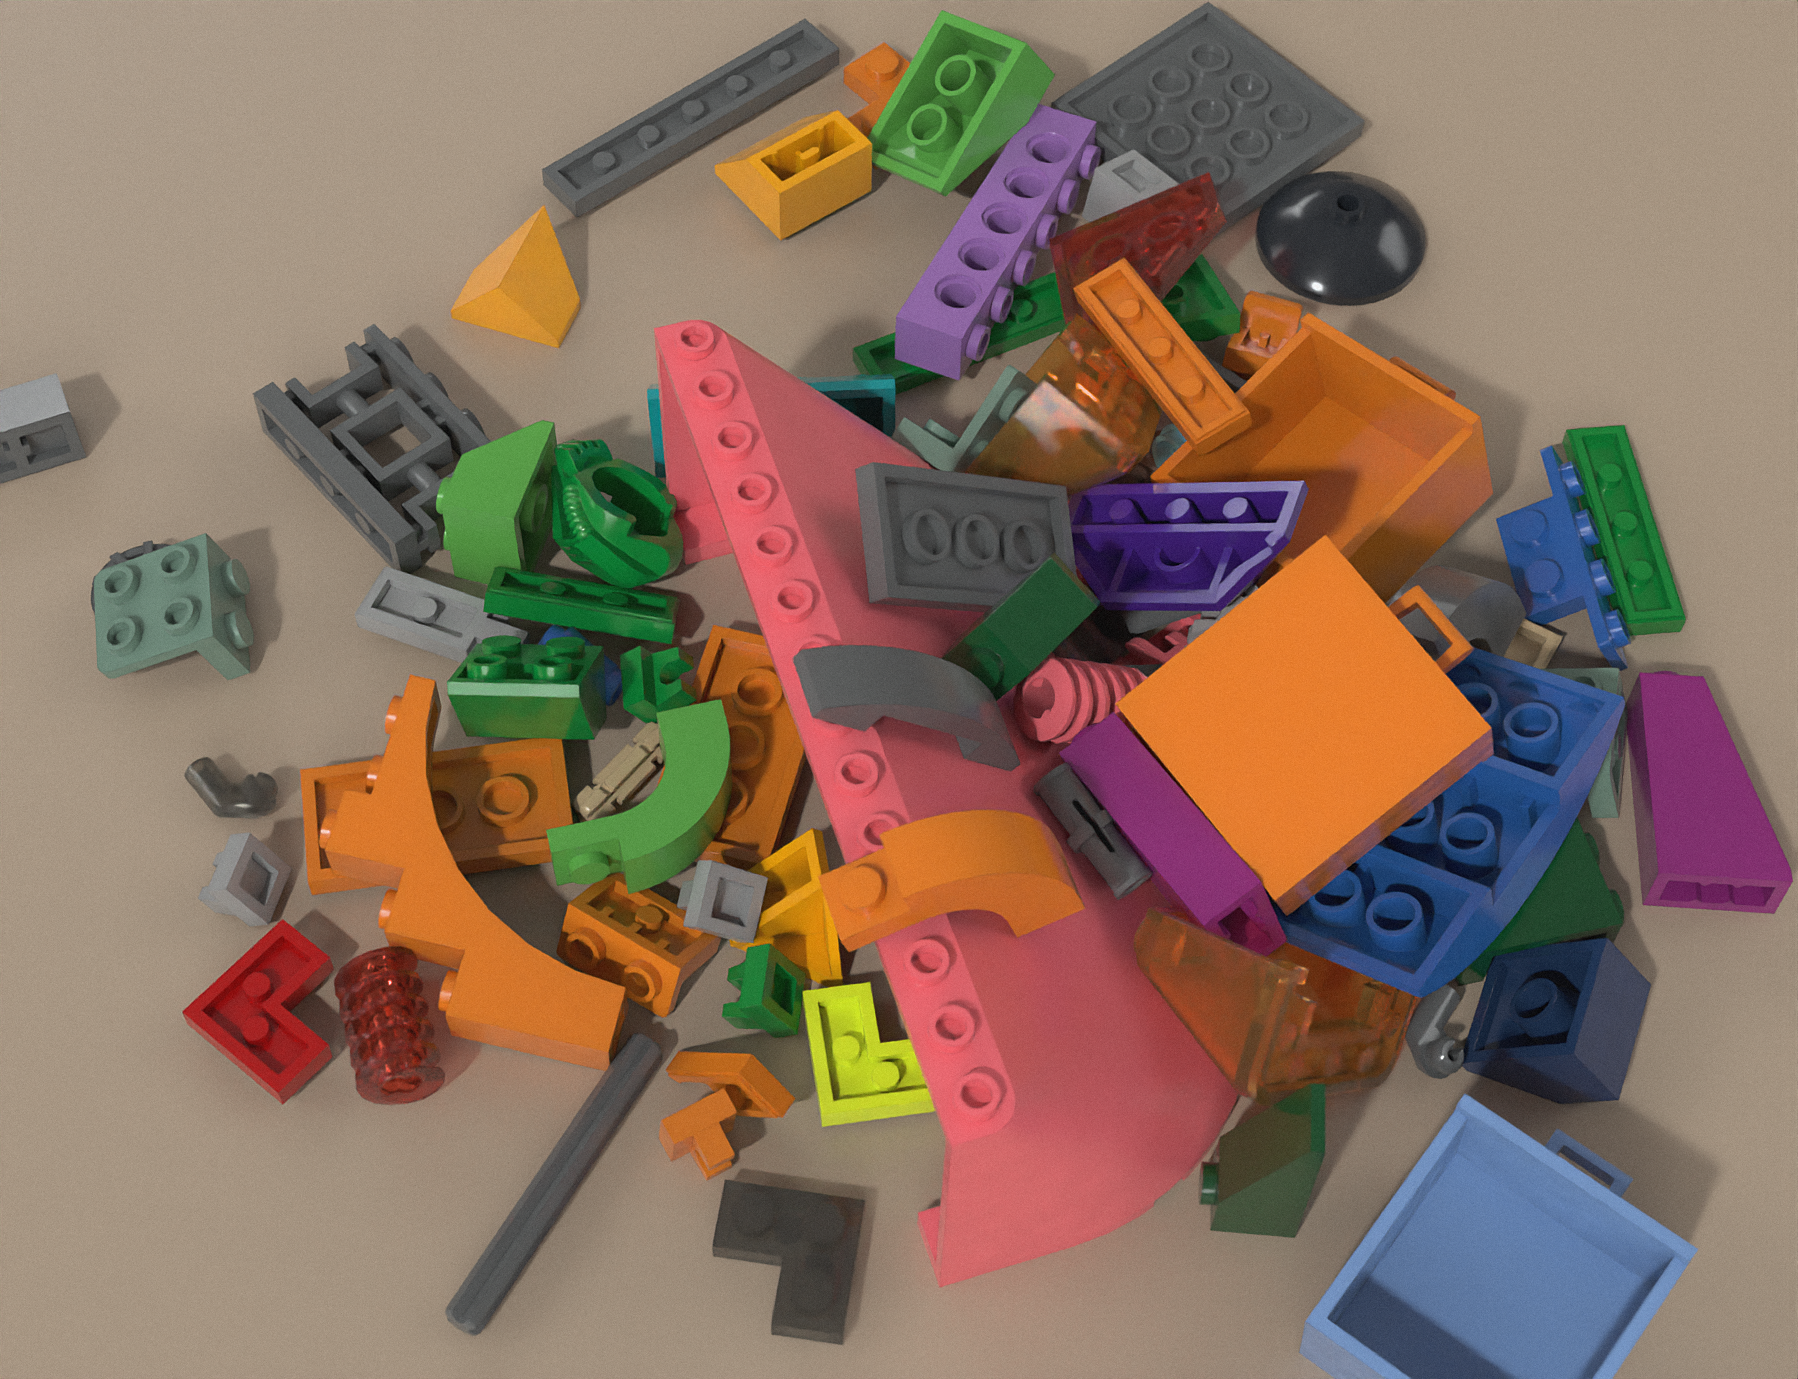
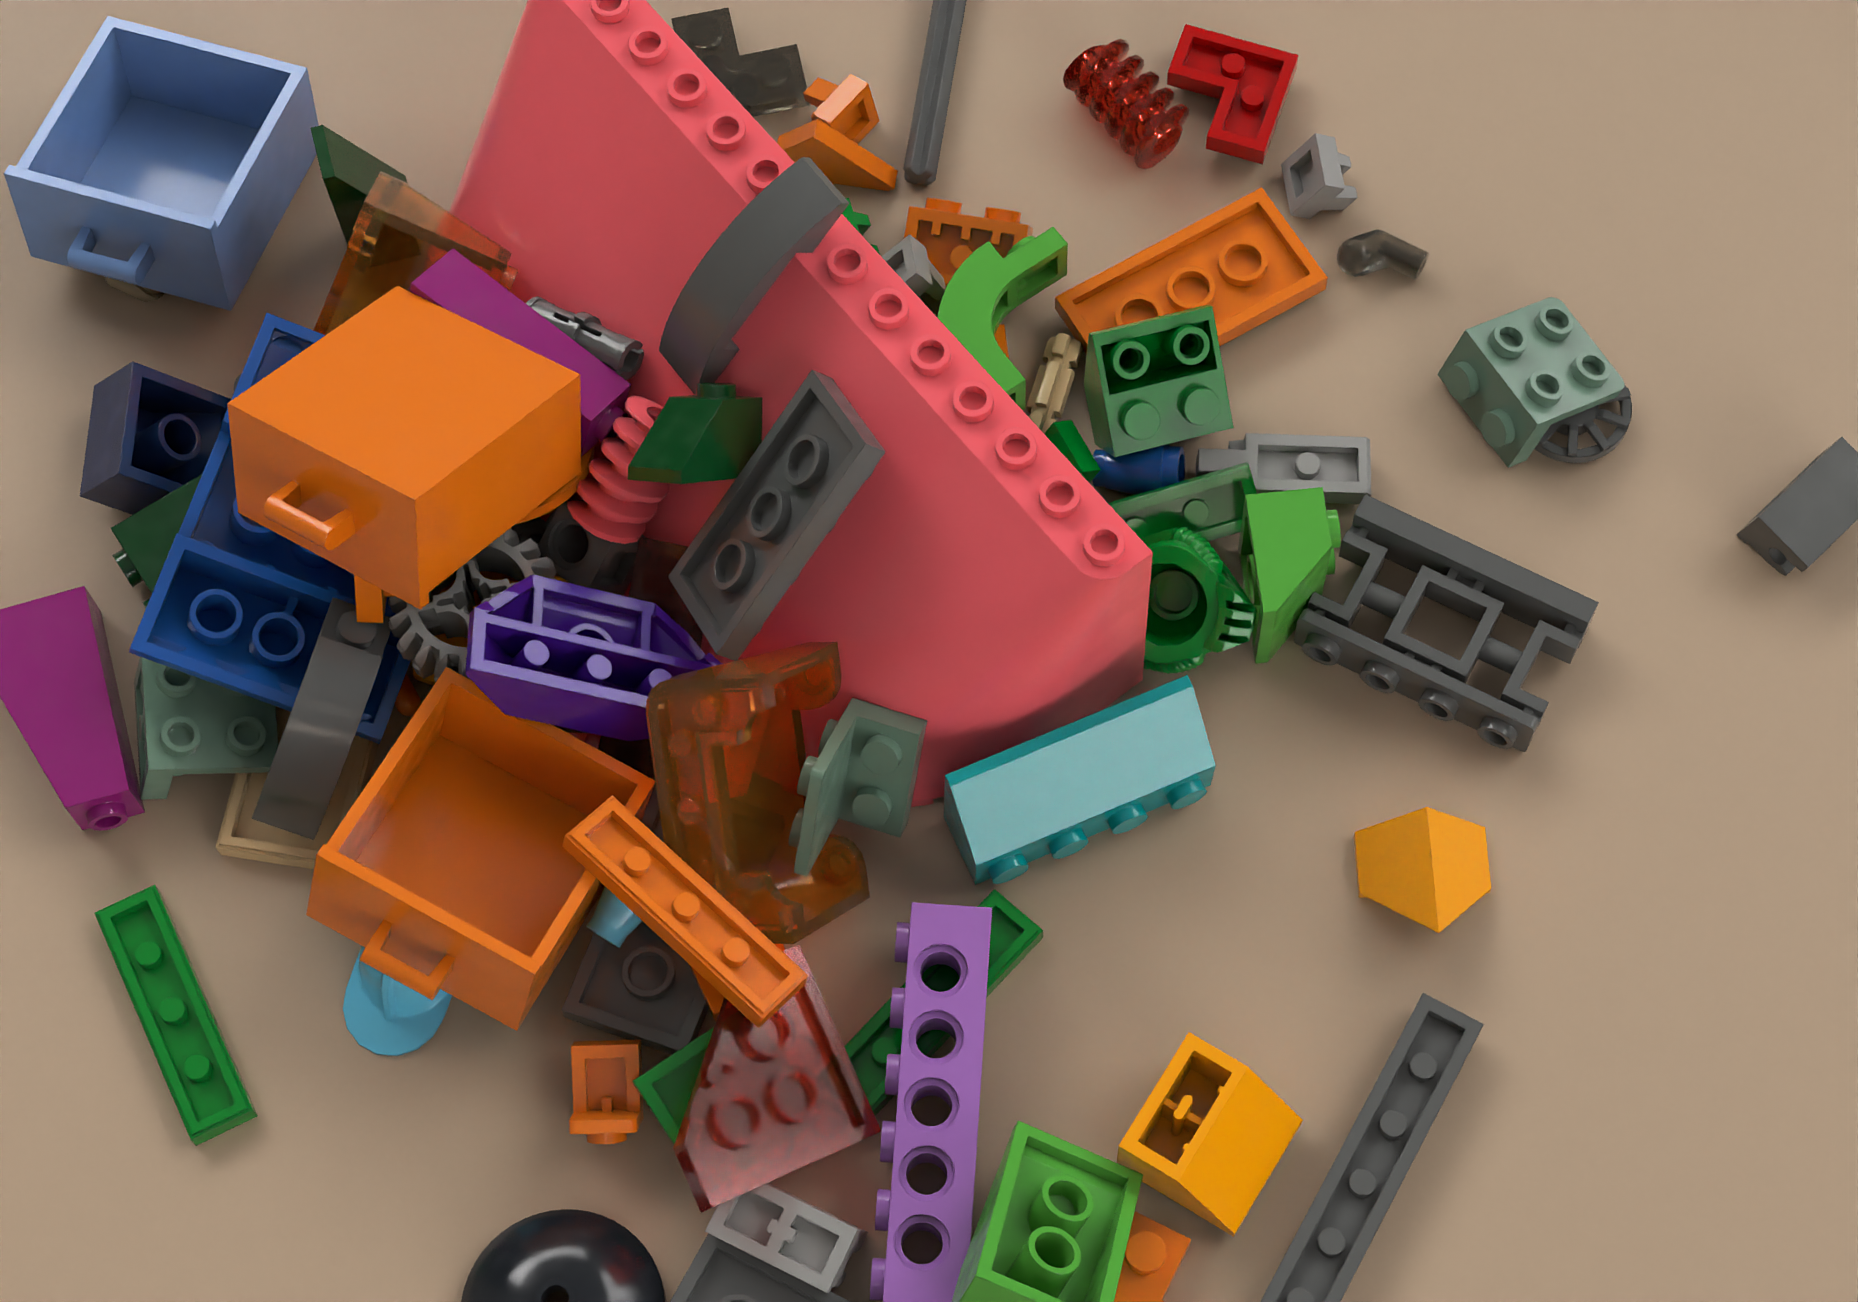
camera: 165 degrees right, 10 degrees up
(503, 986) = (1056, 159): orange arch -> none
(951, 865) = (631, 104): orange arch -> none
(1555, 561) = (232, 932): blue bracket -> none

